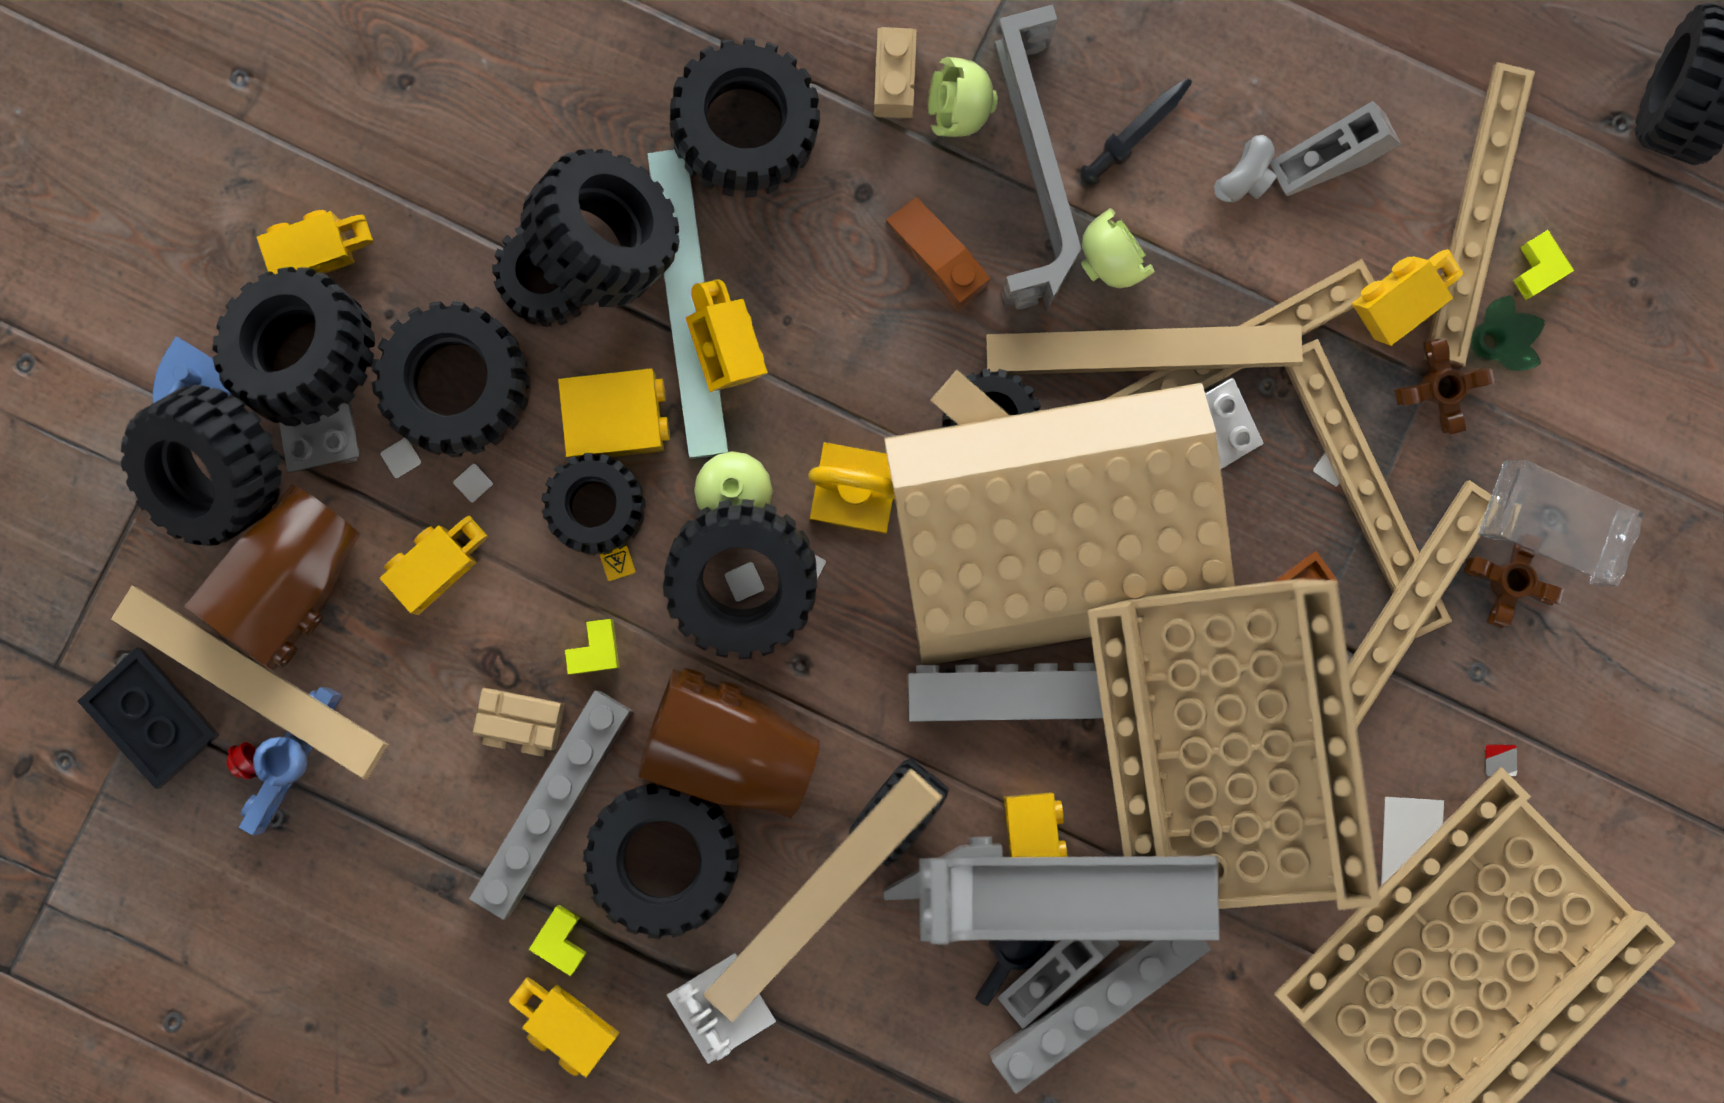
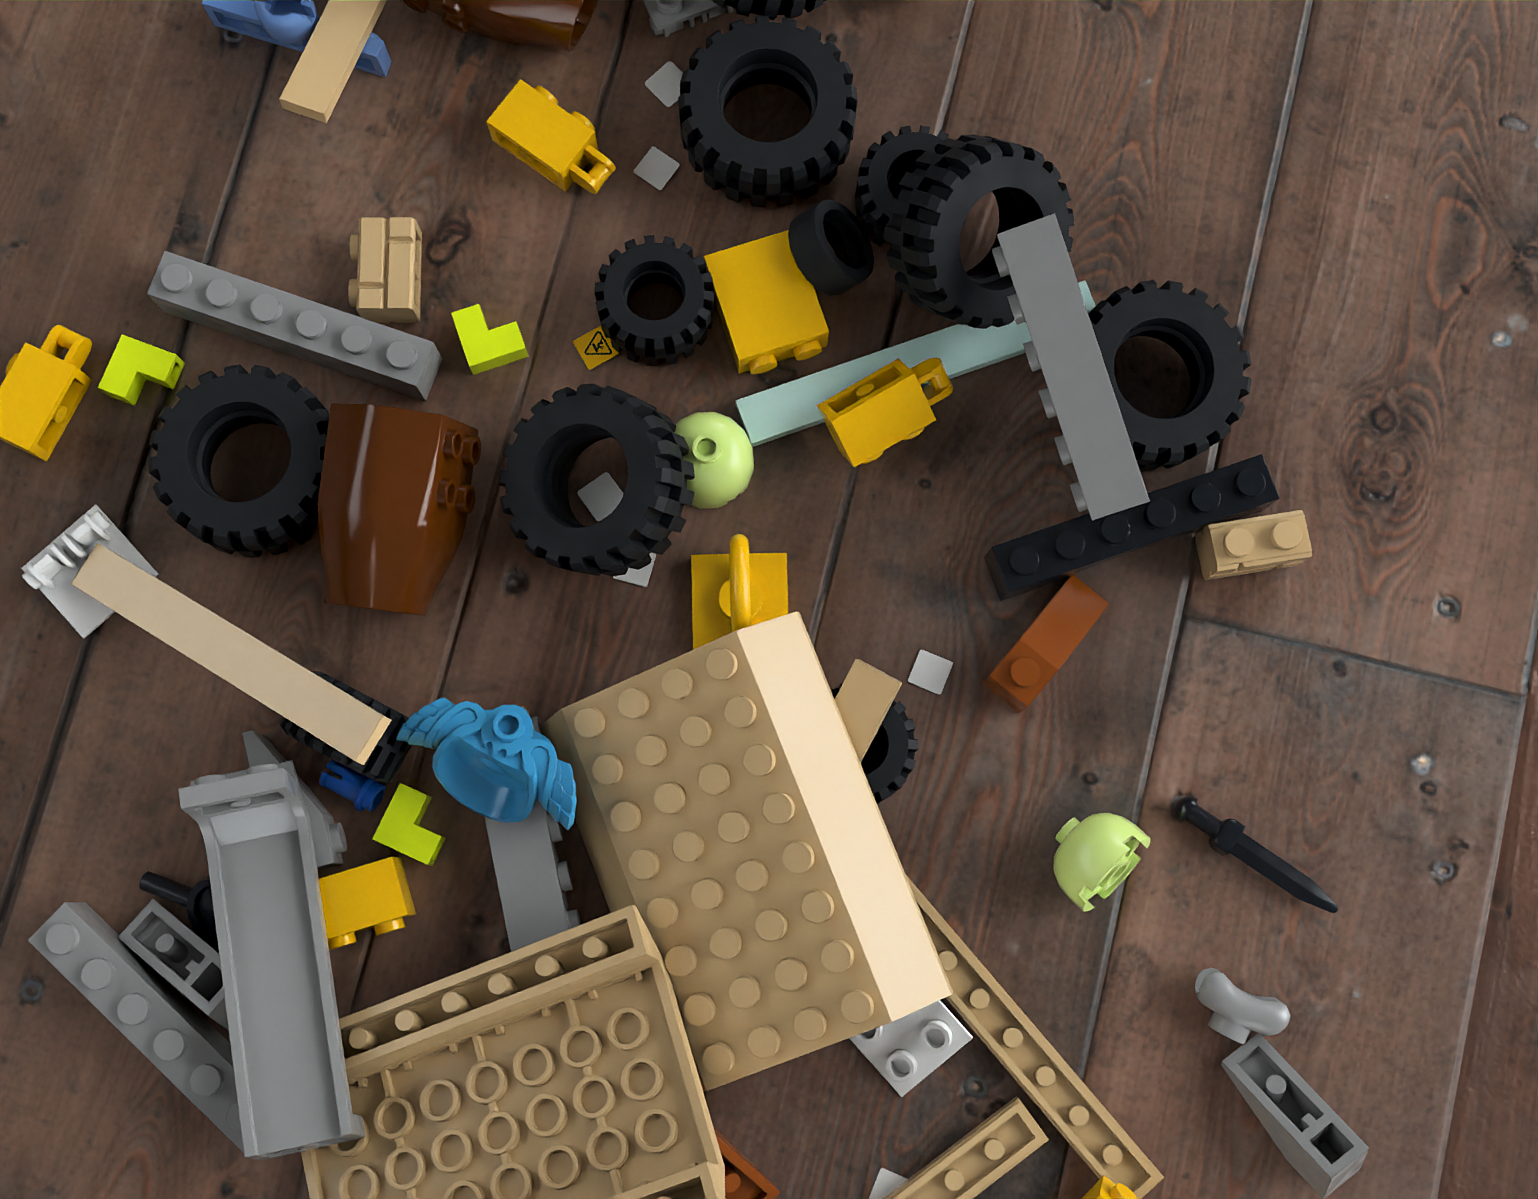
camera: 75 degrees right, 5 degrees down
(585, 366) = (810, 248): none -> black tyre
(735, 179) = (1072, 367): none -> light grey brick
(861, 165) = (1172, 512): none -> black arch
(940, 349) = (930, 672): none -> white sticker
(942, 822) = (353, 786): none -> blue pin
(953, 698) = (493, 760): none -> dark azure piece
(960, 98) = (1242, 631): yellowish green cylinder -> none
(982, 790) = (401, 826): none -> neon yellow piece
(1022, 36) = (1342, 698): light grey panel -> none
(1145, 349) = (985, 924): tan tile -> none

